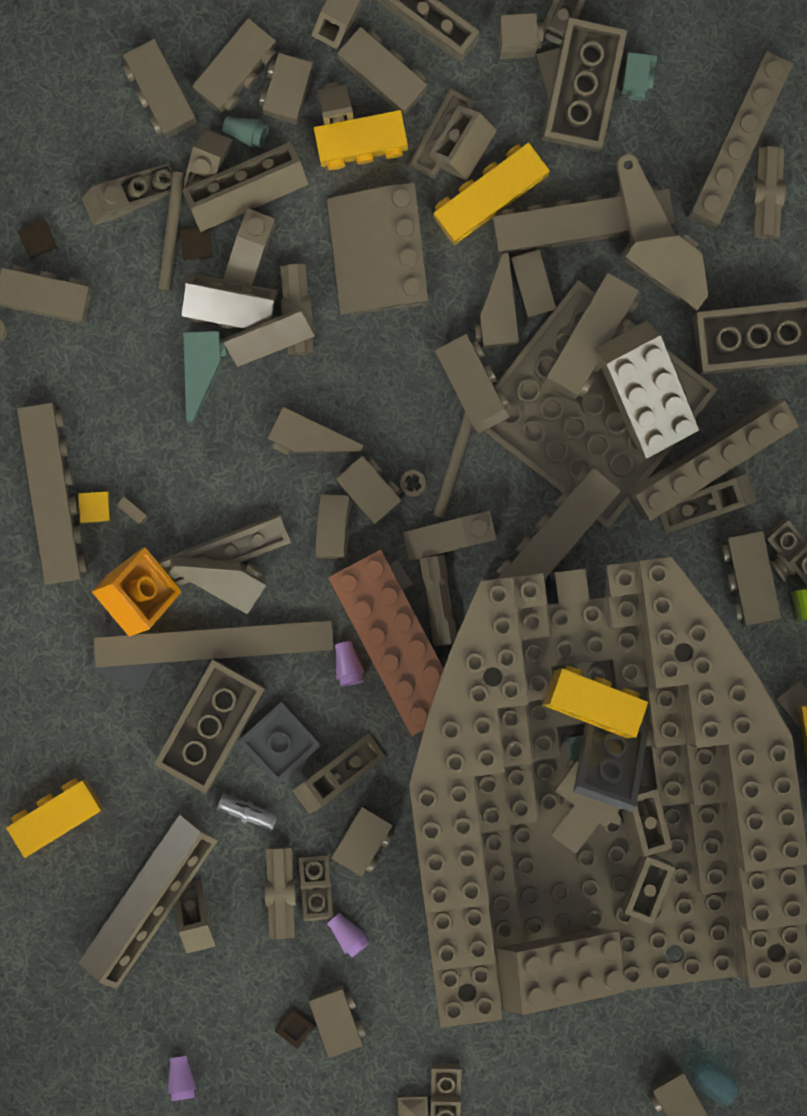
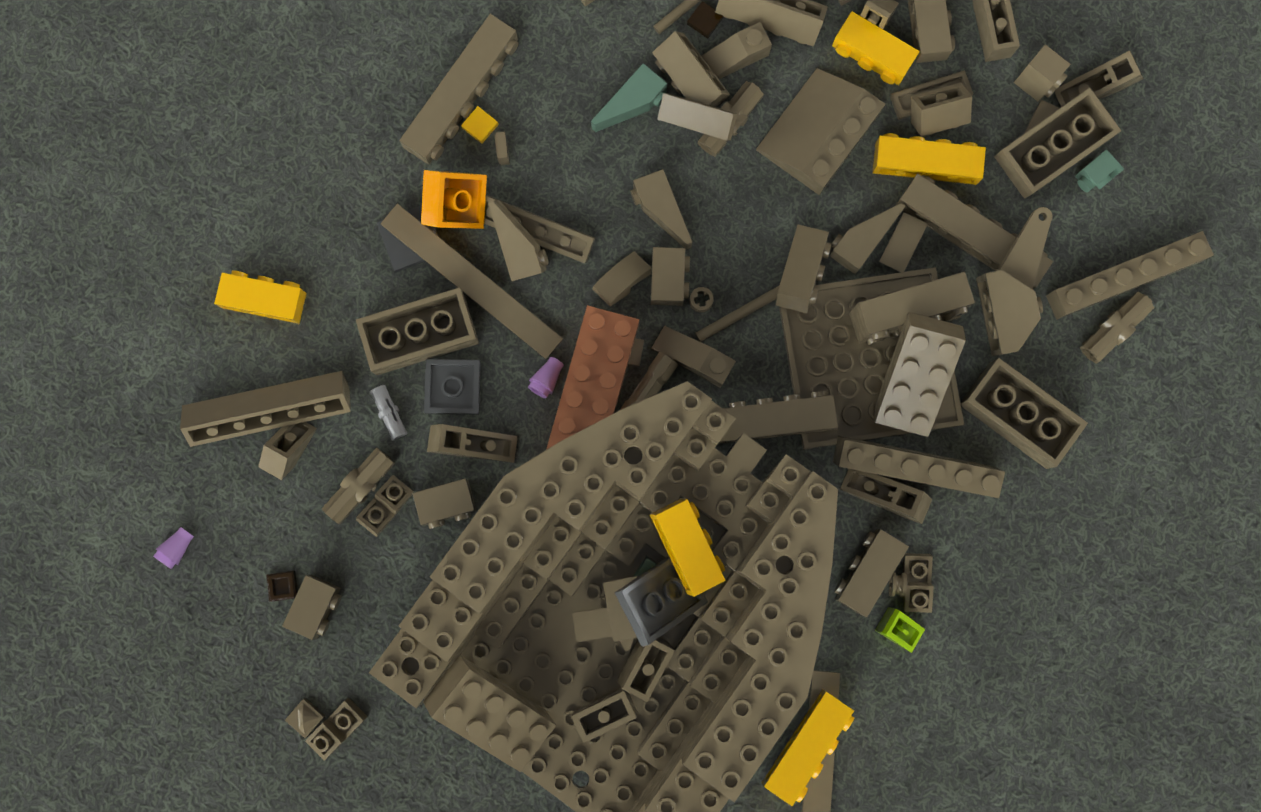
camera: 45 degrees right, 5 degrees down
(348, 935) = (375, 558): lavender cone -> none

